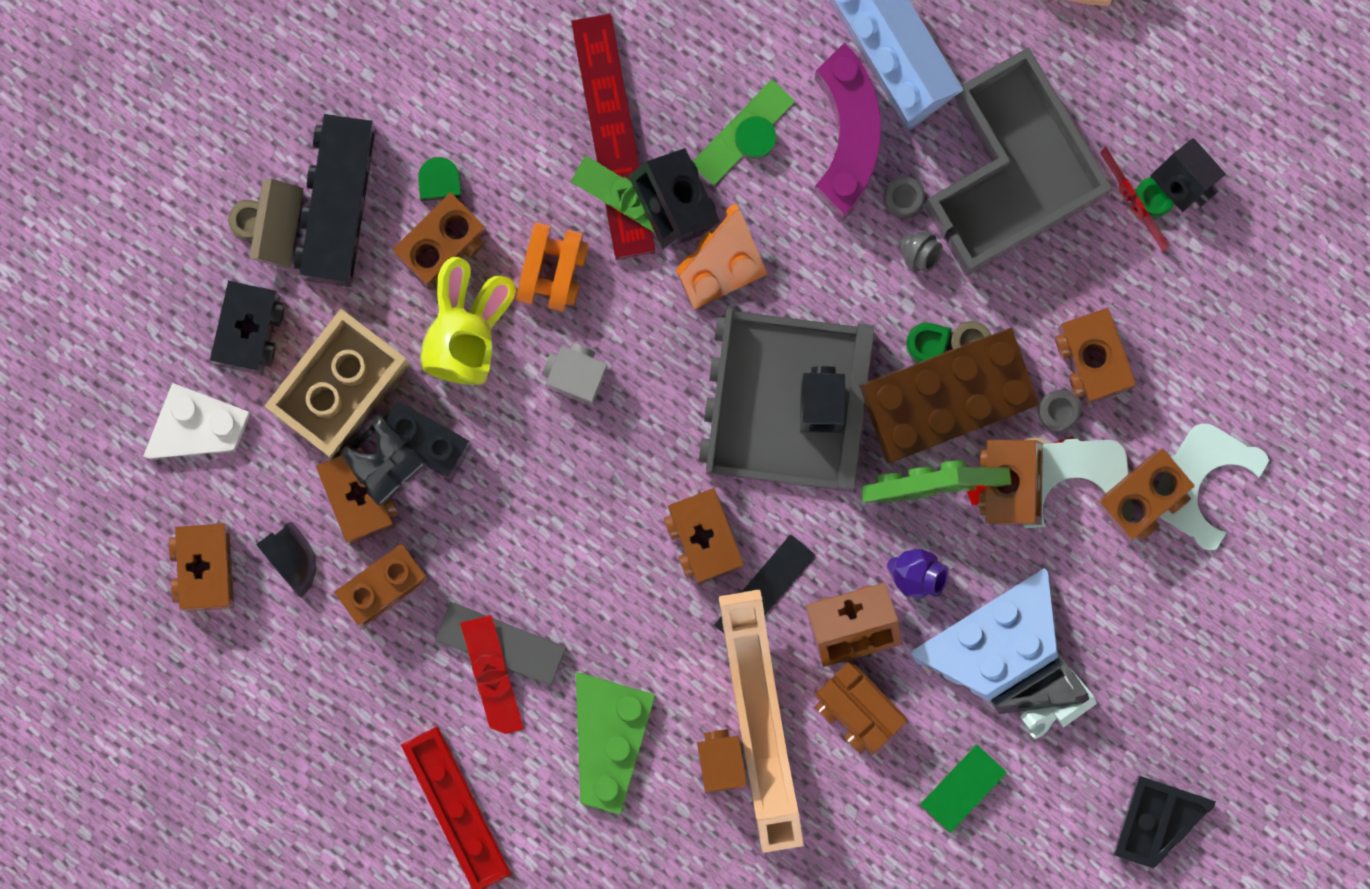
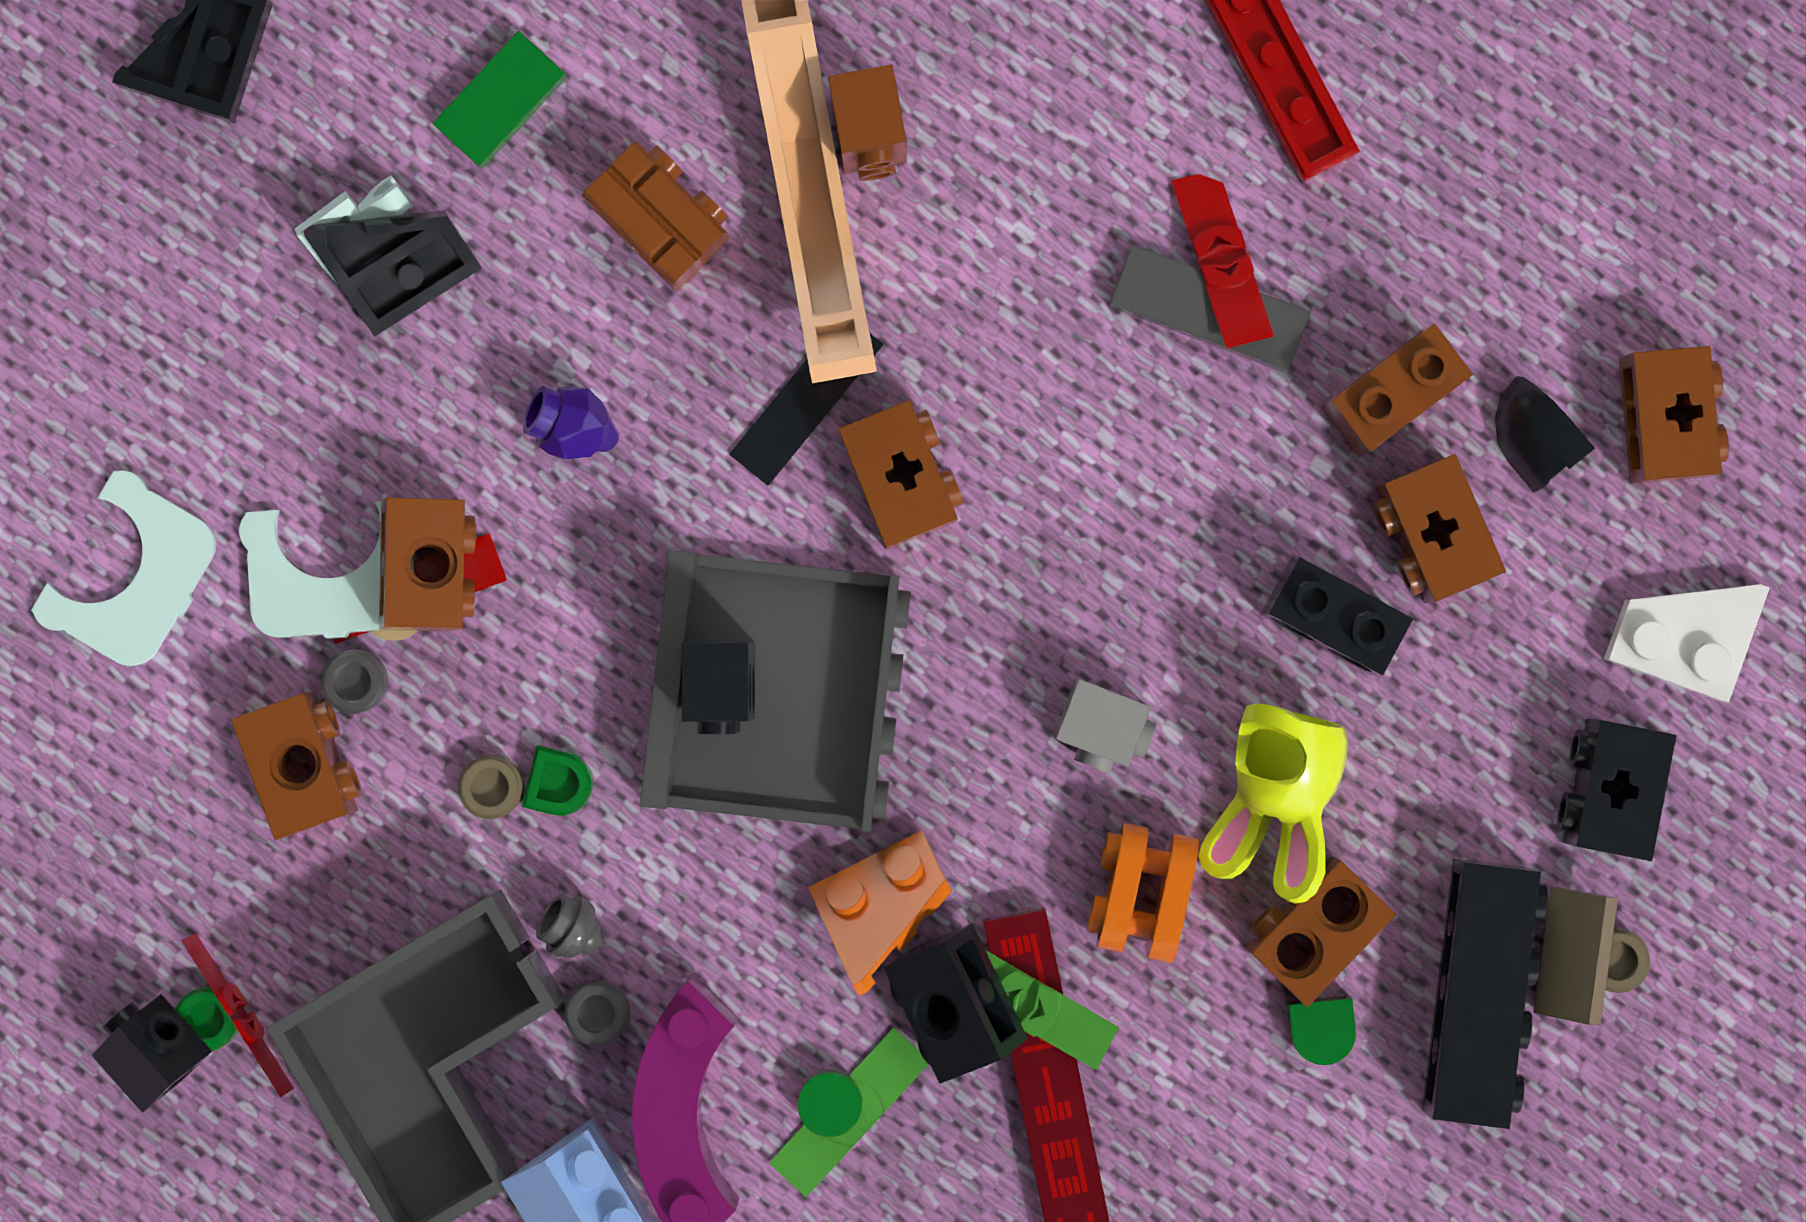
camera: 175 degrees right, 5 degrees up
(337, 384) = (1476, 699): tan brick -> none
(386, 468) = (1395, 569): black piece -> none
(609, 739) = (1040, 166): bright green wing -> none
(854, 624) = (635, 337): brick -> none
(926, 483) = (557, 558): bright green wing -> none
(949, 395) = (523, 700): reddish brown plate -> none
(998, 641) = (445, 321): light blue wing -> none
(1139, 487) = (227, 563): dark orange brick -> none

